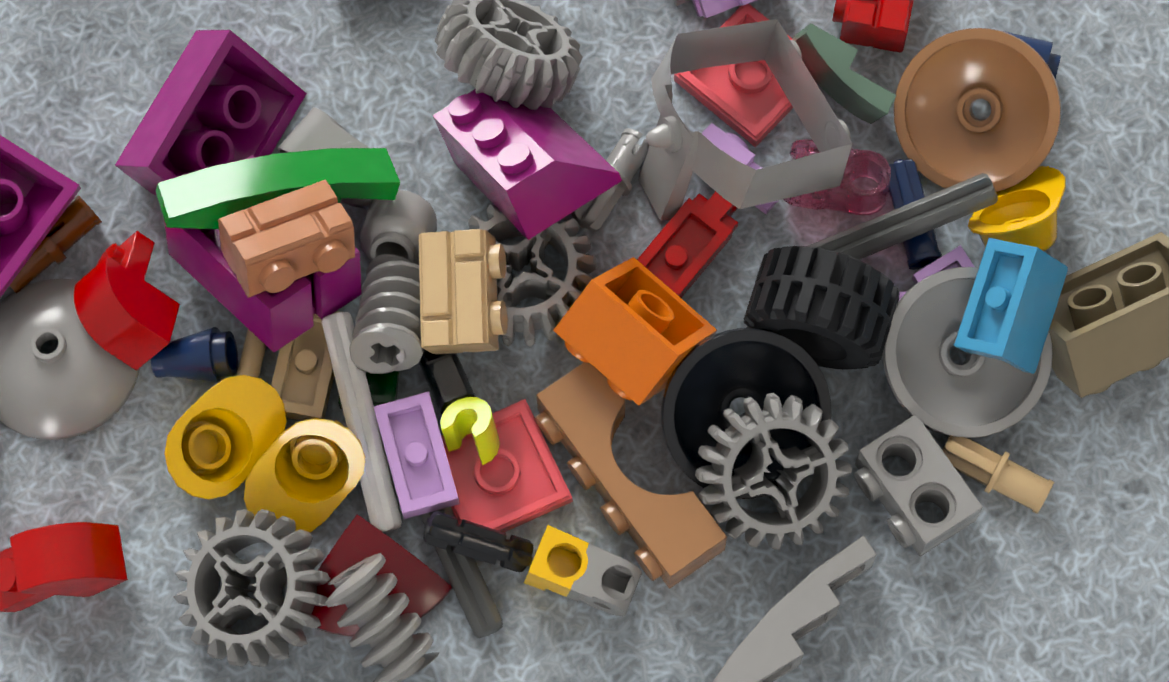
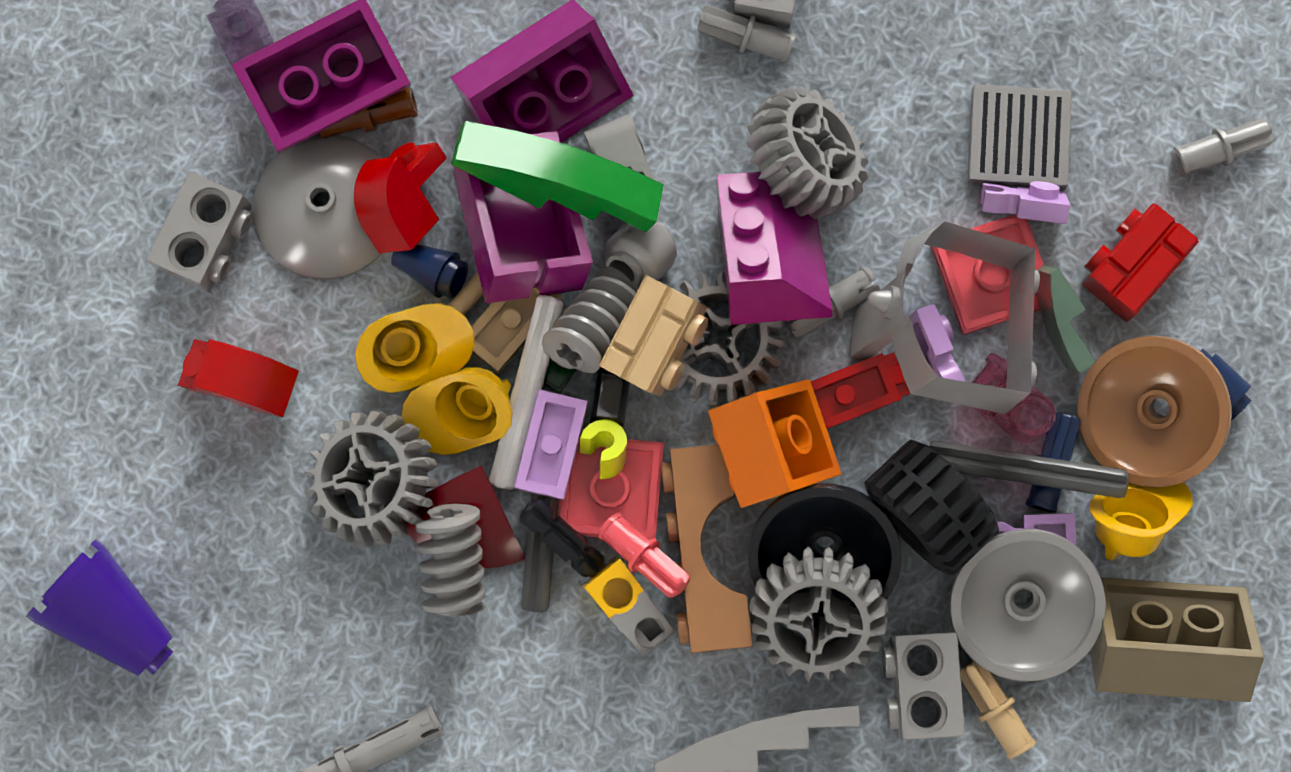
camera: 30 degrees right, 10 degrees up
(287, 239) = (538, 226): nougat brick -> none
(569, 509) = (644, 555): none -> coral axle
(1012, 304) = (1082, 591): dark azure panel -> none

